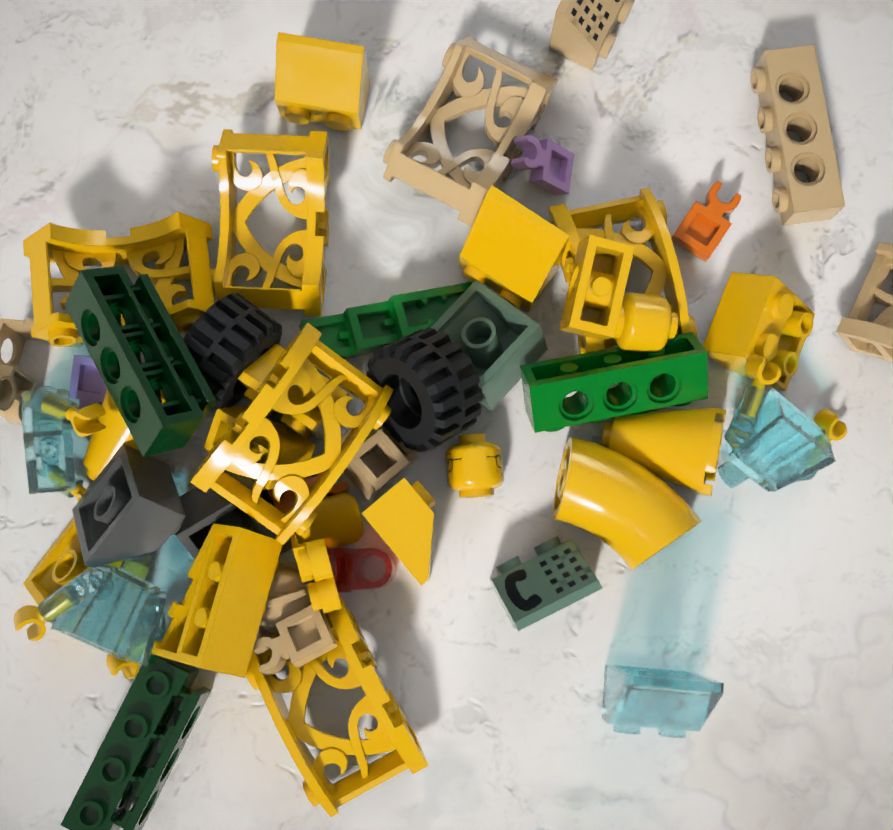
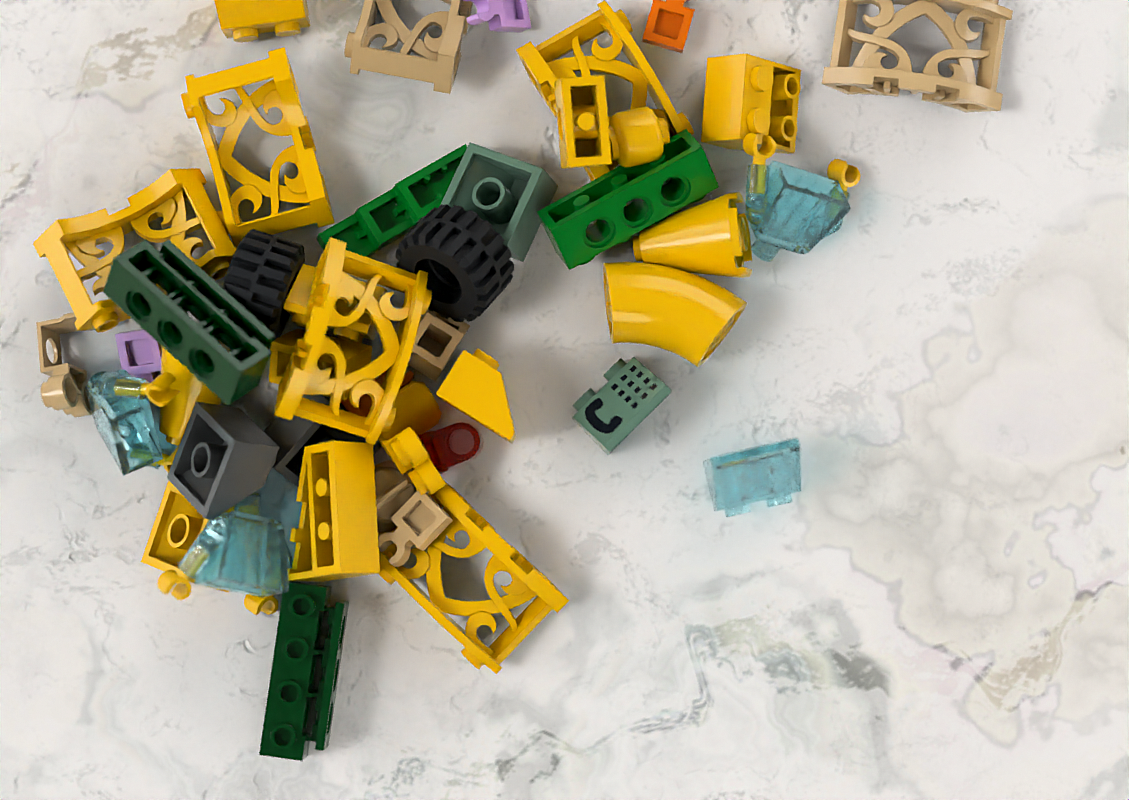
camera: 20 degrees left, 5 degrees up
(474, 466) = (524, 318): yellow head -> none
(512, 250) = (494, 109): yellow slope -> none

